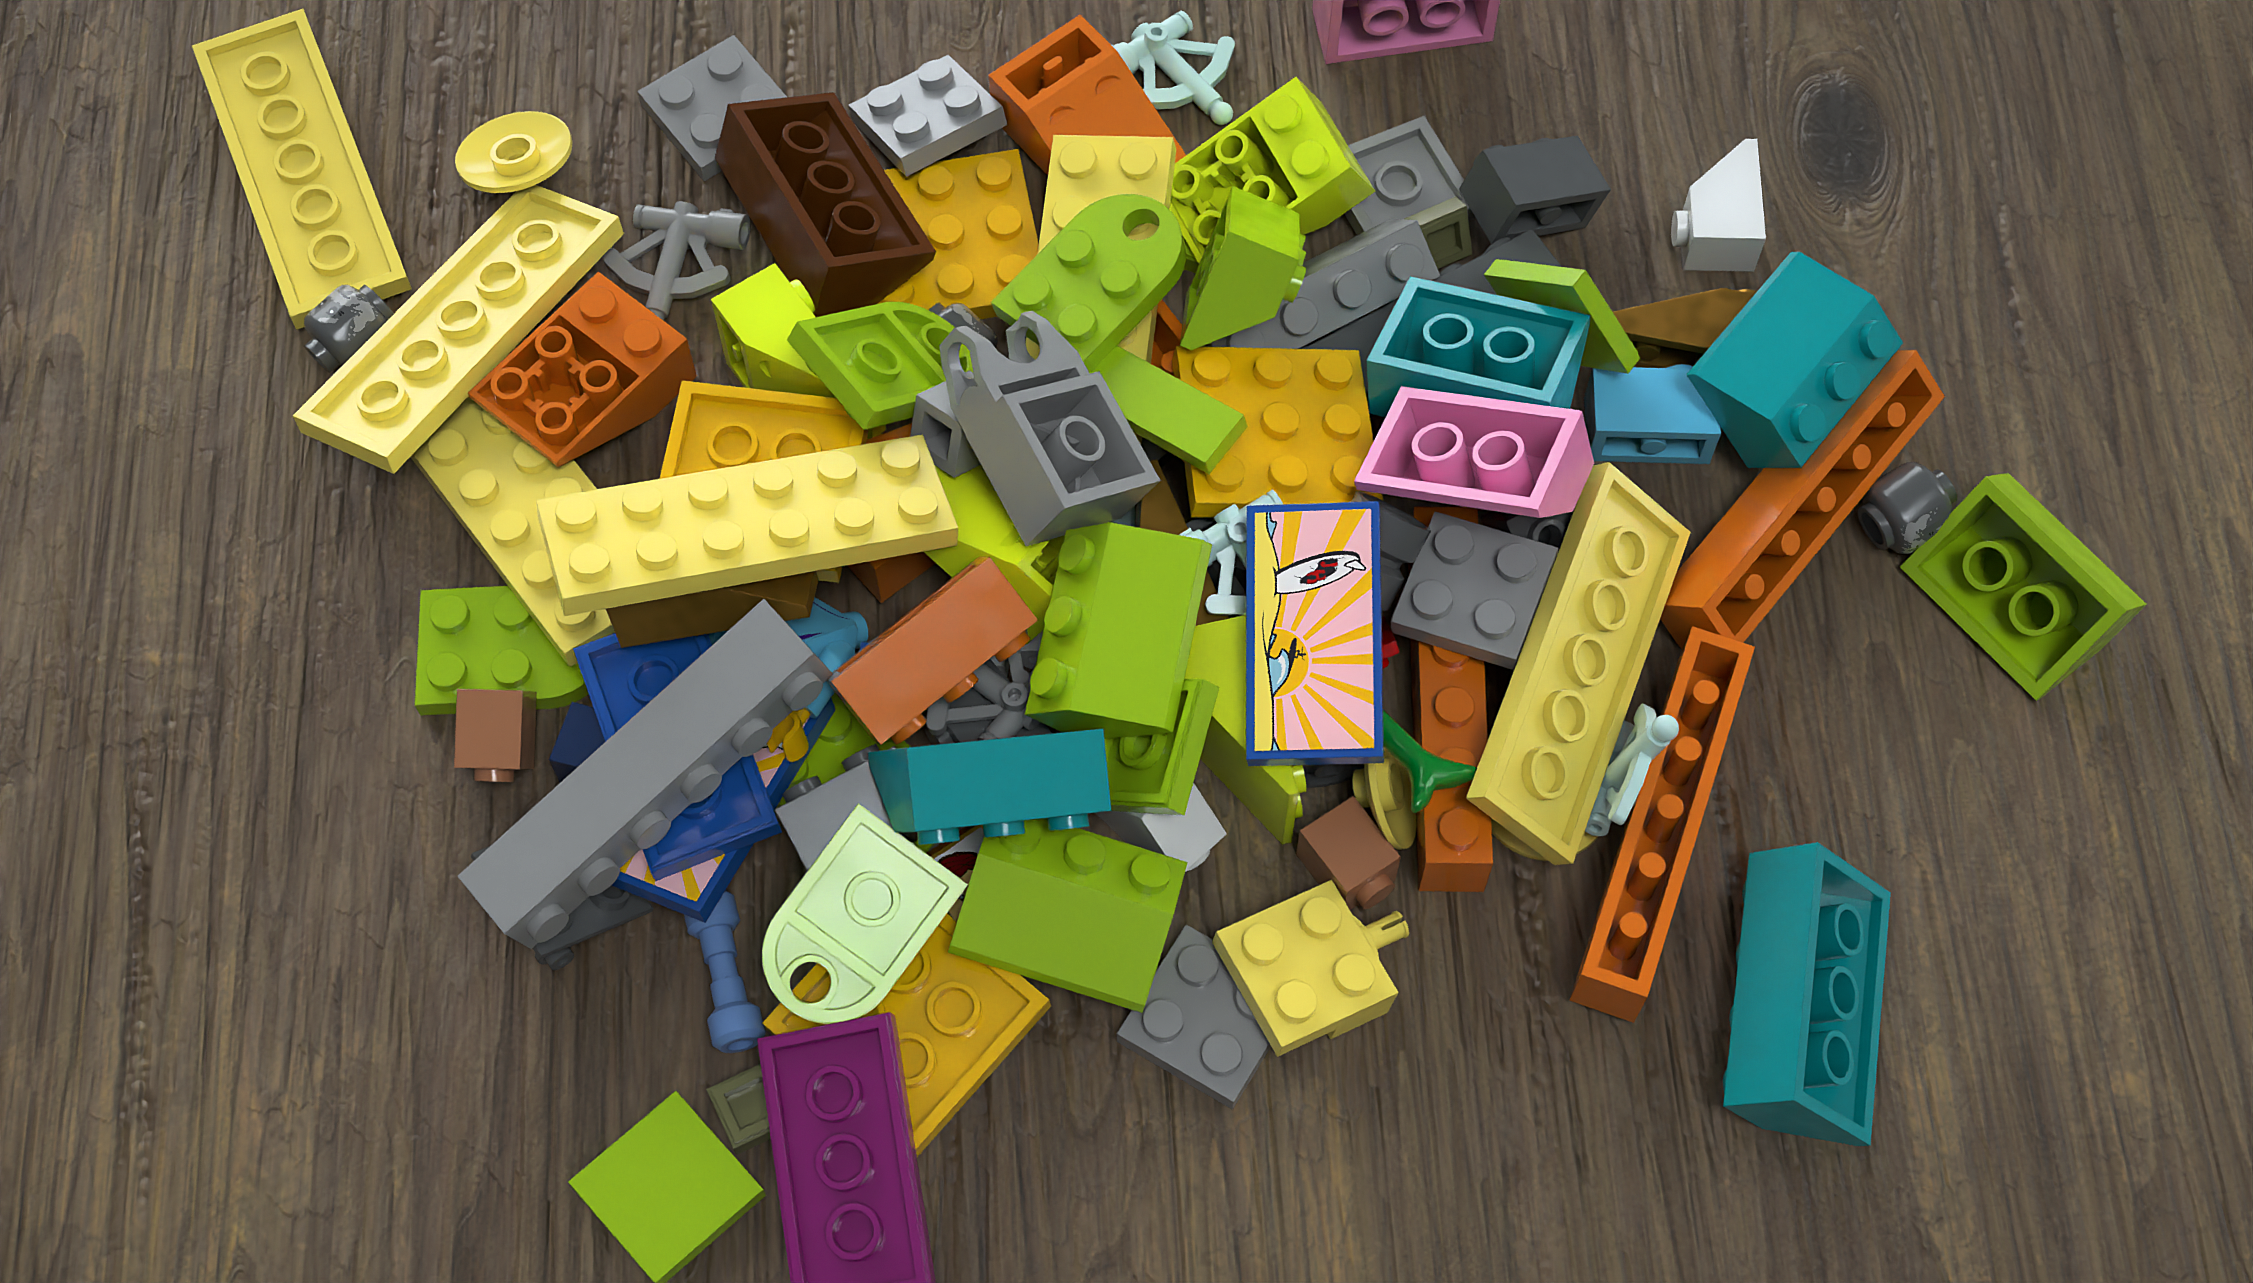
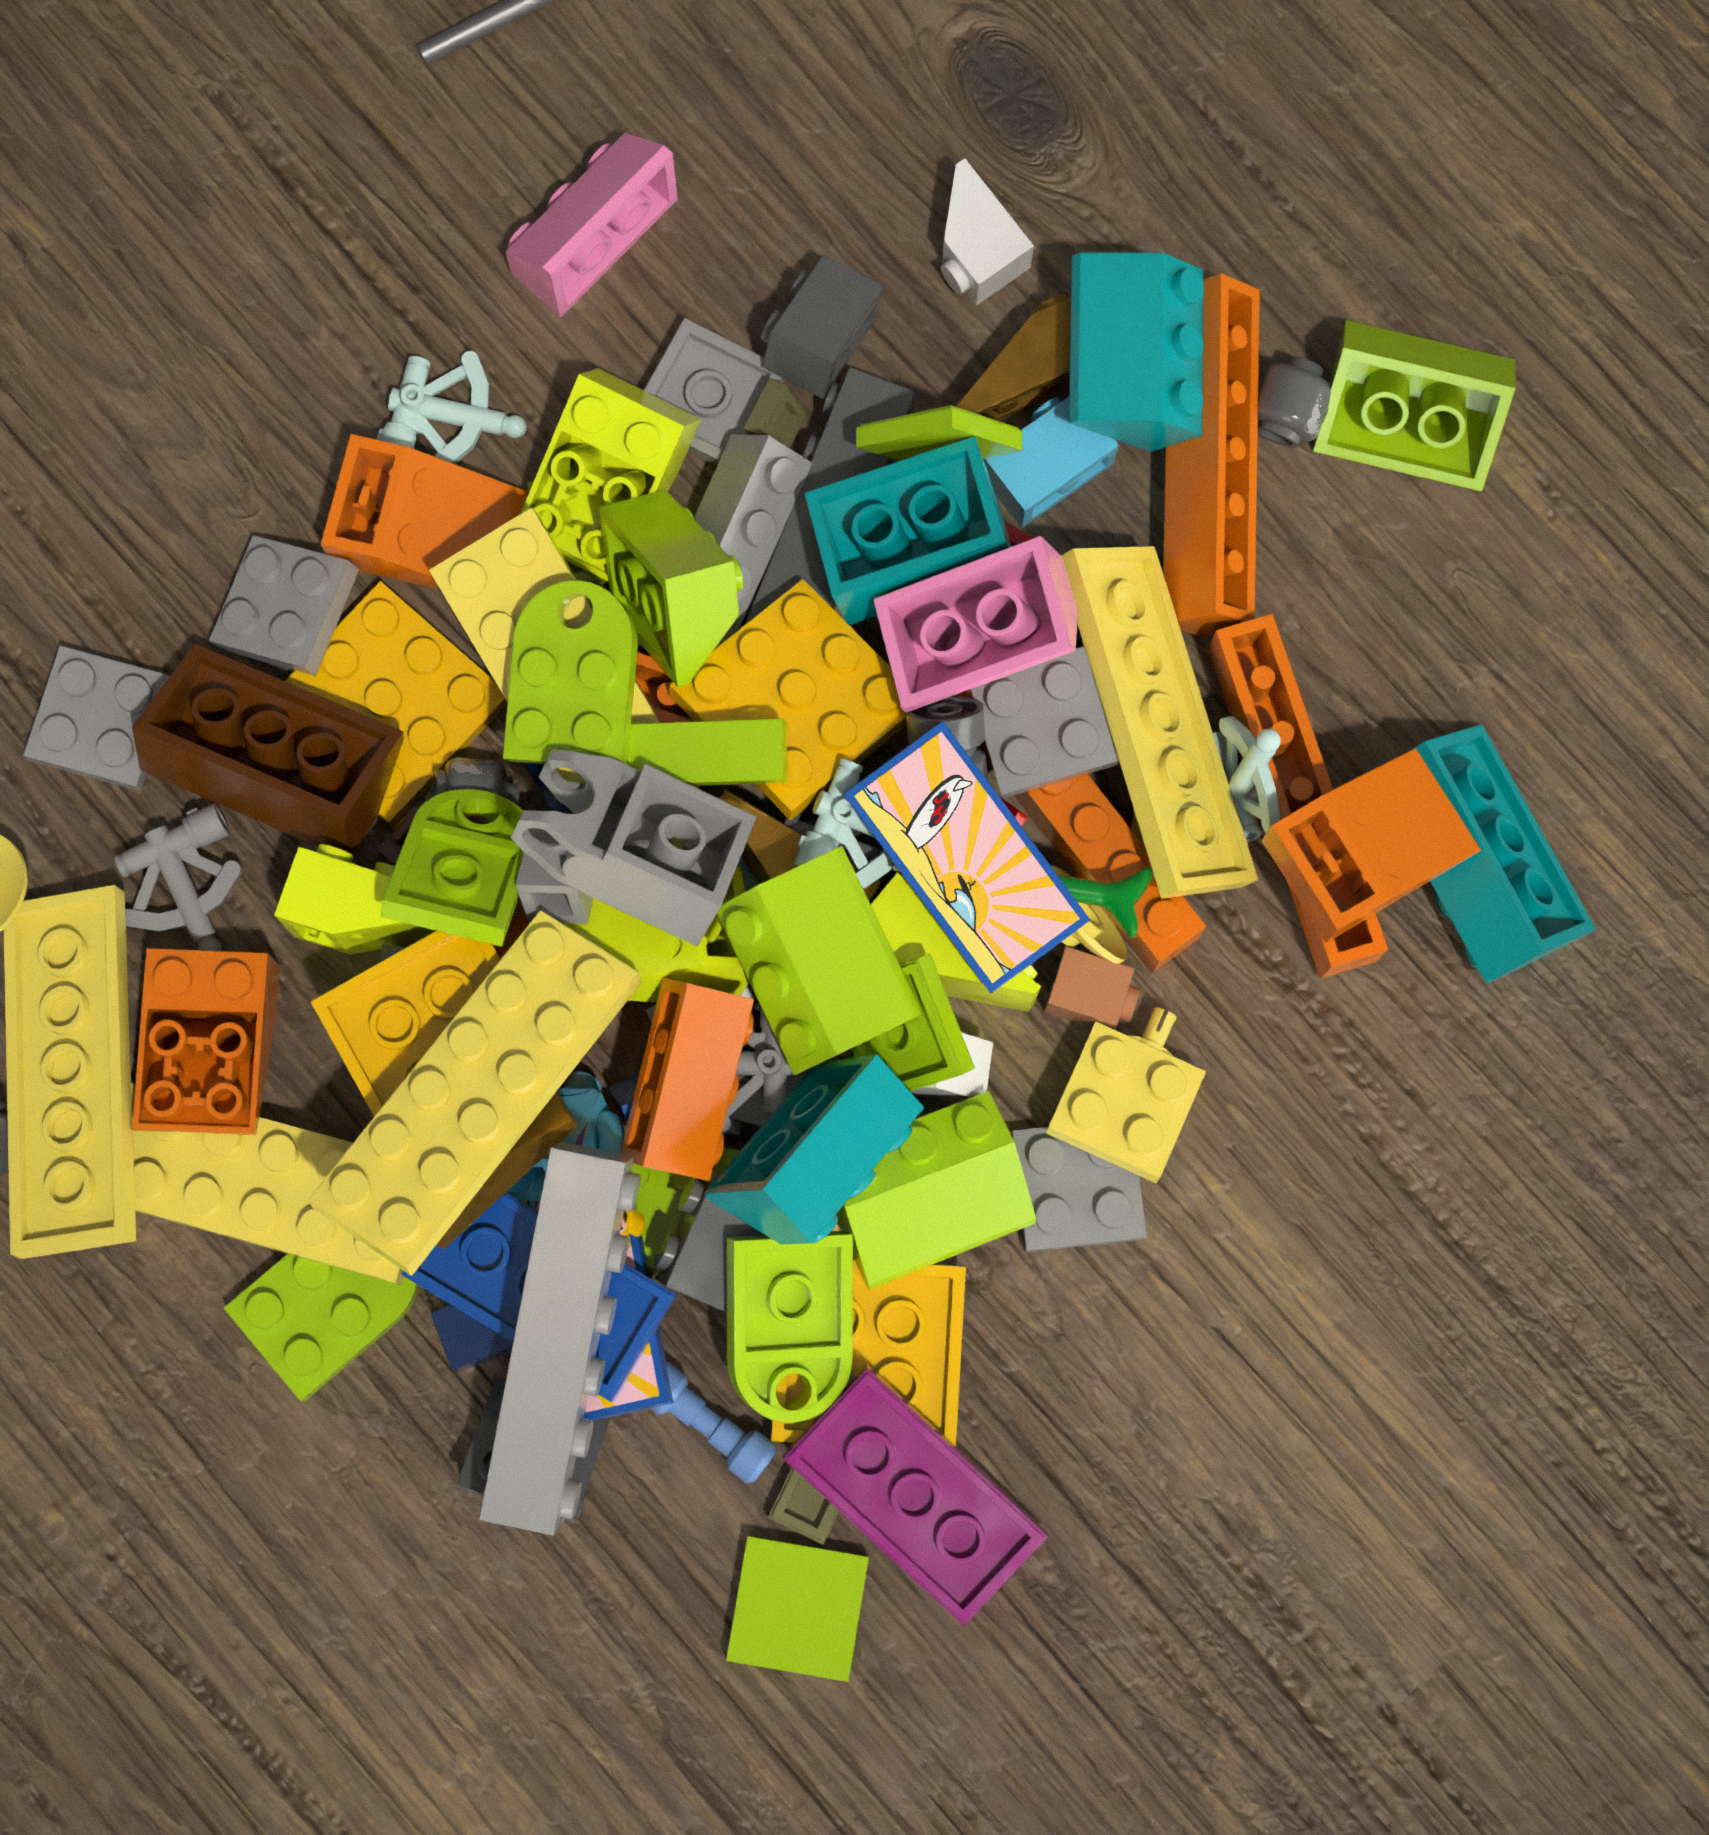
camera: 40 degrees left, 15 degrees up
(495, 732) = (386, 1377): nougat brick -> none
(1695, 882) = (1369, 843): none -> orange slope

